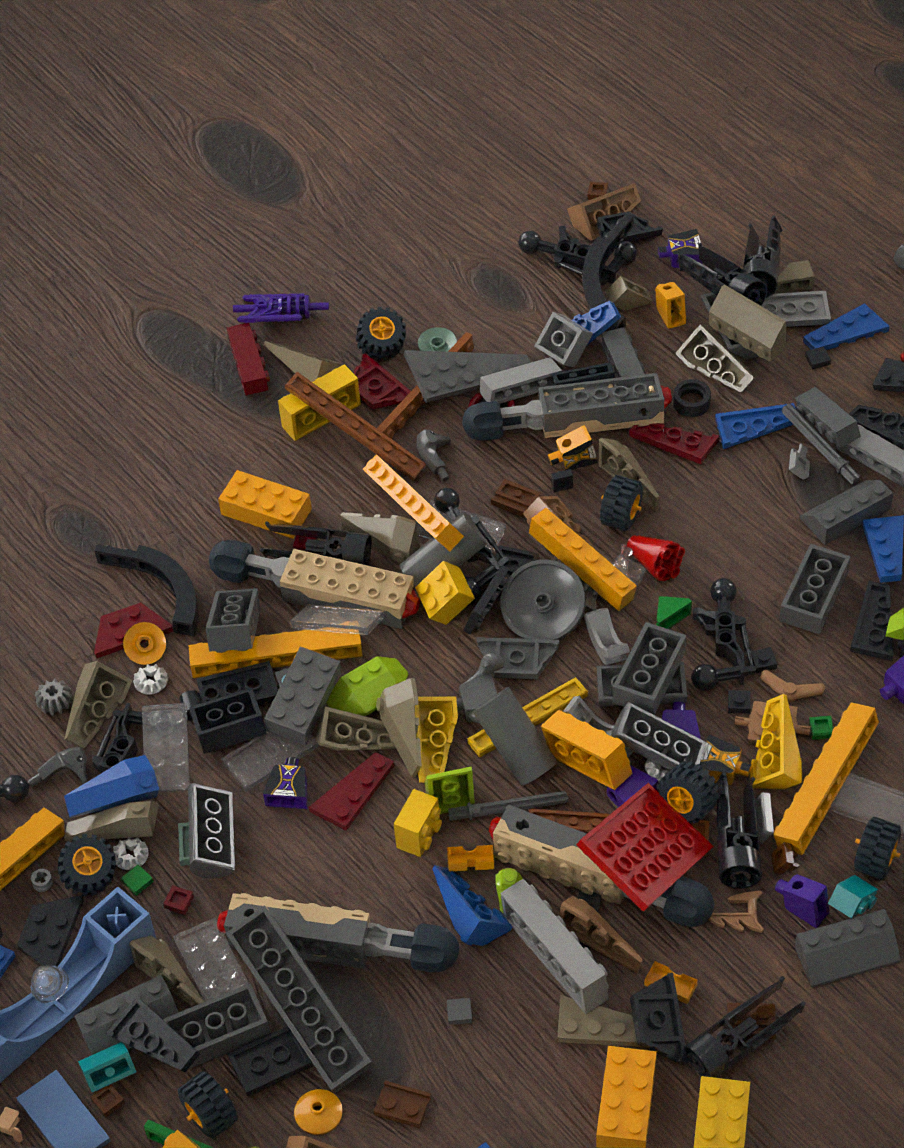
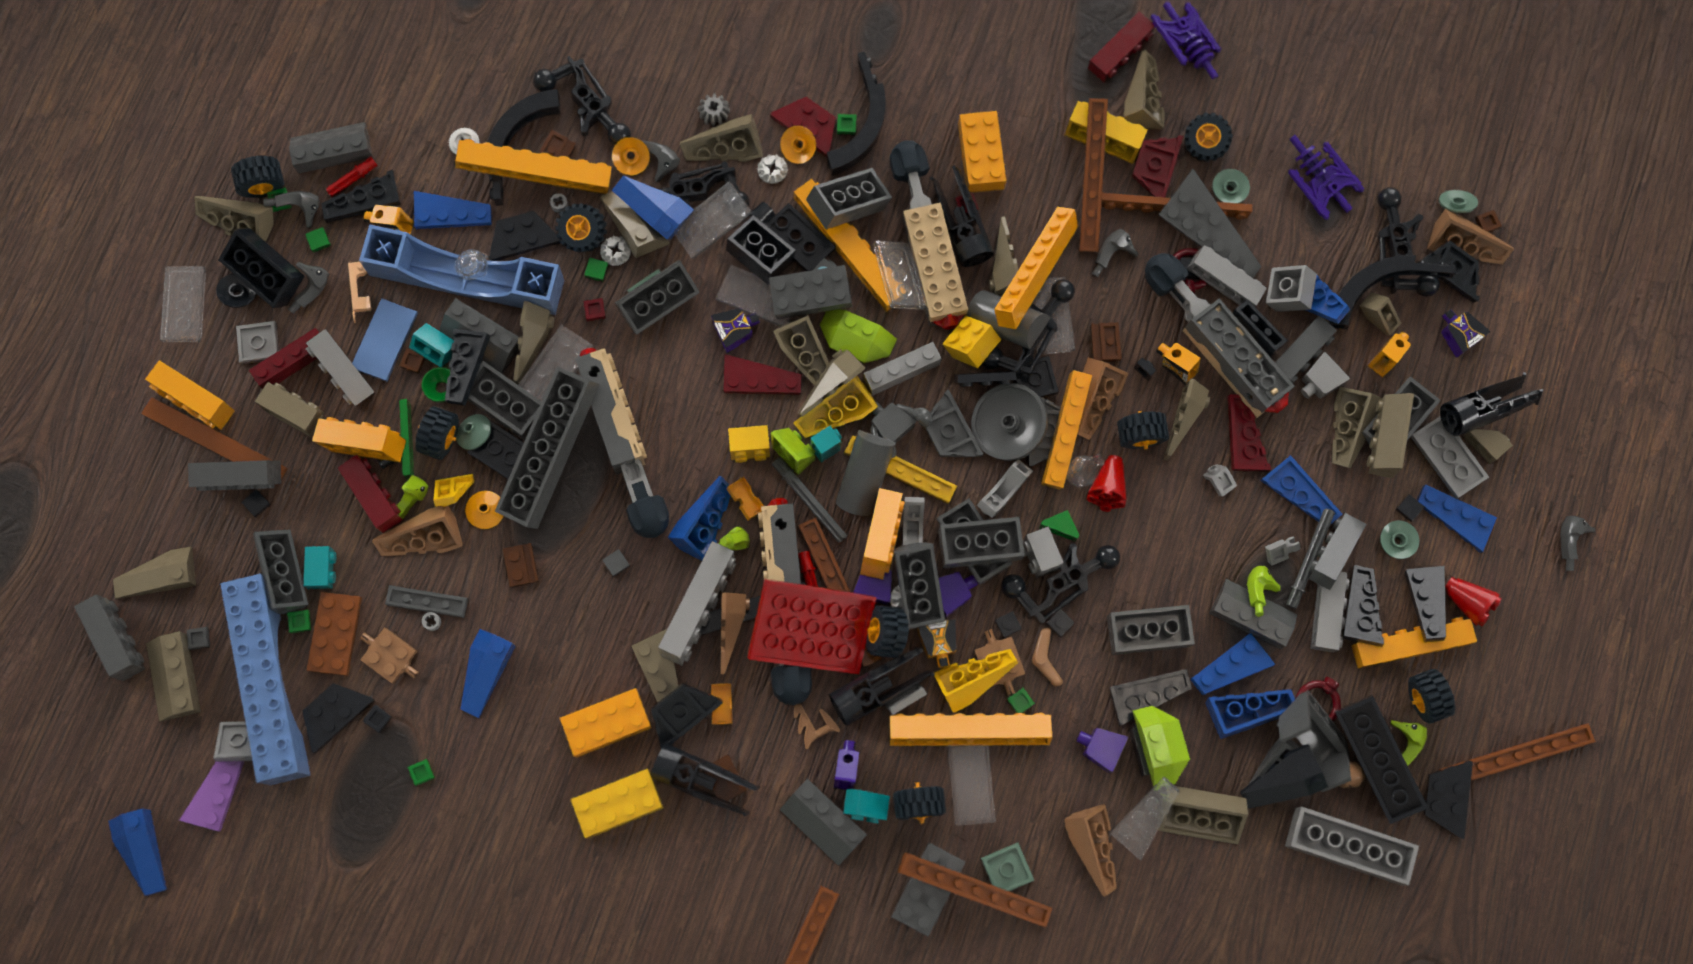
camera: 50 degrees right, 25 degrees up
(50, 782) = (637, 163): none -> light orange dish
(151, 1074) = (430, 382): none -> green piece
(154, 597) = (846, 124): none -> green plate
(235, 1071) = (473, 432): none -> sand green dish
(276, 1128) = (449, 490): none -> yellow wing
(430, 659) = (902, 368): none -> light grey brick
(463, 752) = (826, 443): none -> teal brick
(481, 276) = (1325, 181): none -> dark purple bar
(566, 200) = (1458, 201): none -> sand green dish
(658, 358) = (1323, 377): none -> light grey torso
(691, 409) = (1308, 416): black tyre -> none
(696, 627) = (1042, 552): none -> light grey brick
(703, 473) = (1220, 479): none -> light grey bracket
(722, 272) = (1428, 411): black piece -> none
(783, 859) = (877, 733): reddish brown tile -> none
(821, 488) = (1256, 582): none -> lime animal
(843, 375) = (1405, 533): none -> sand green dish

